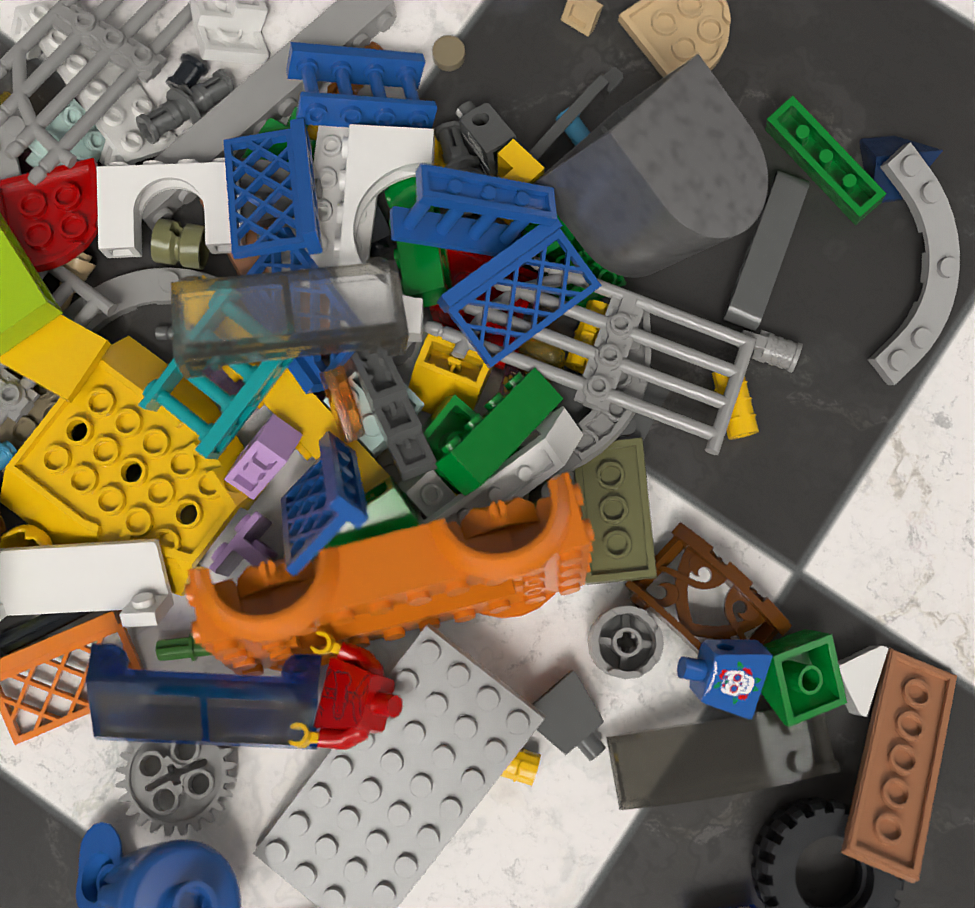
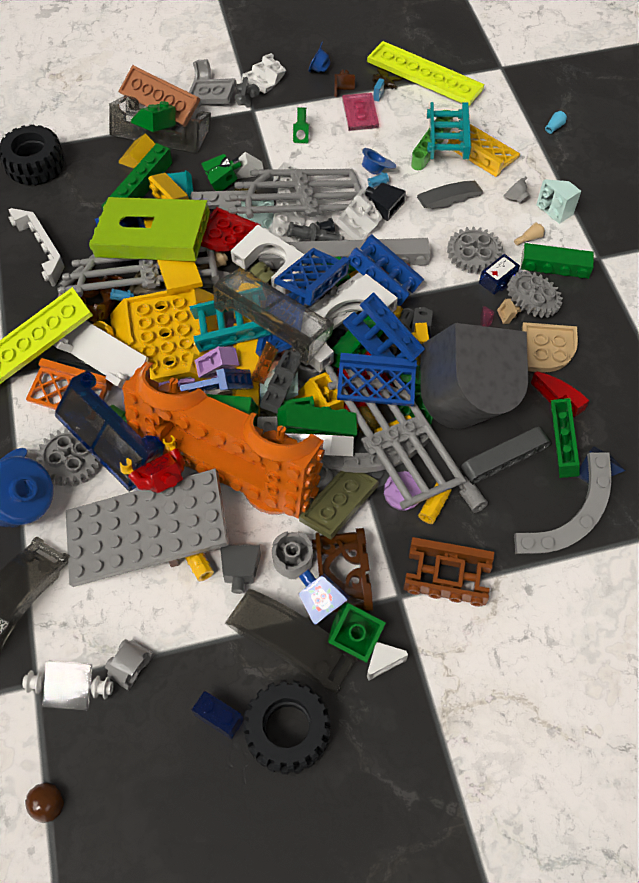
camera: 45 degrees right, 20 degrees down
(448, 53) = (437, 289): dark tan tile -> none
(561, 49) = (486, 317): none -> clear pink slope
(671, 438) = (394, 496): none -> lavender tile
(760, 91) = (554, 389): none -> red slope
(821, 463) = (453, 556): none -> dark orange fence
(900, 766) = (364, 706): nougat tile -> none

